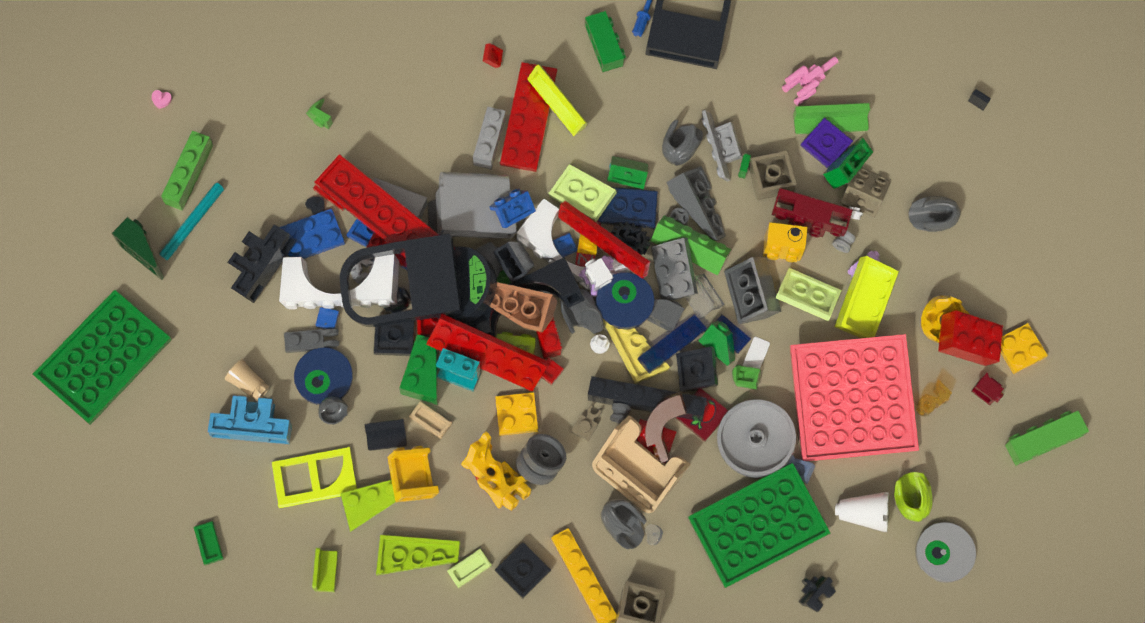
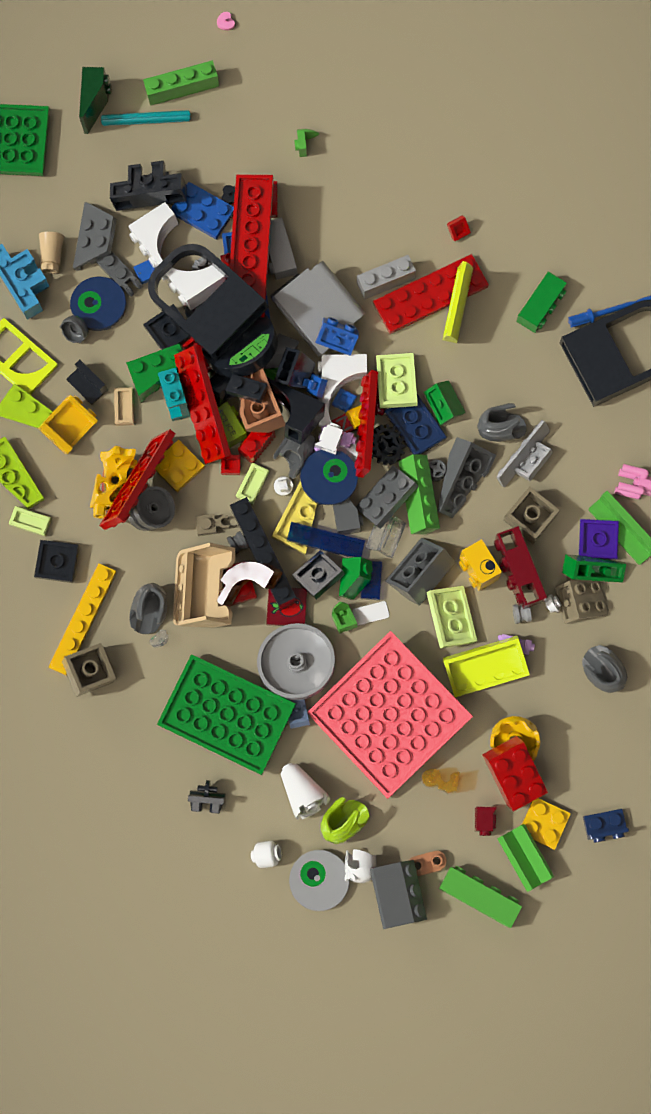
camera: 60 degrees right, 5 degrees up
(262, 335) = (94, 236): none -> dark grey wing
(506, 306) = (246, 388): none -> black plate
(512, 450) = (137, 480): none -> red plate
(539, 255) = (315, 385): none -> blue tile
(577, 366) = (252, 483): none -> yellowish green tile
(744, 166) = (522, 487): green tile -> none
(896, 577) = (266, 854): none -> white head
(960, 510) = (358, 866): none -> white helmet
(991, 459) = (427, 864): none -> nougat plate
(1004, 495) = (398, 894): none -> dark grey slope
(1039, 380) = (525, 857): none -> bright green panel
(1054, 305) = (605, 824): none -> dark blue bracket

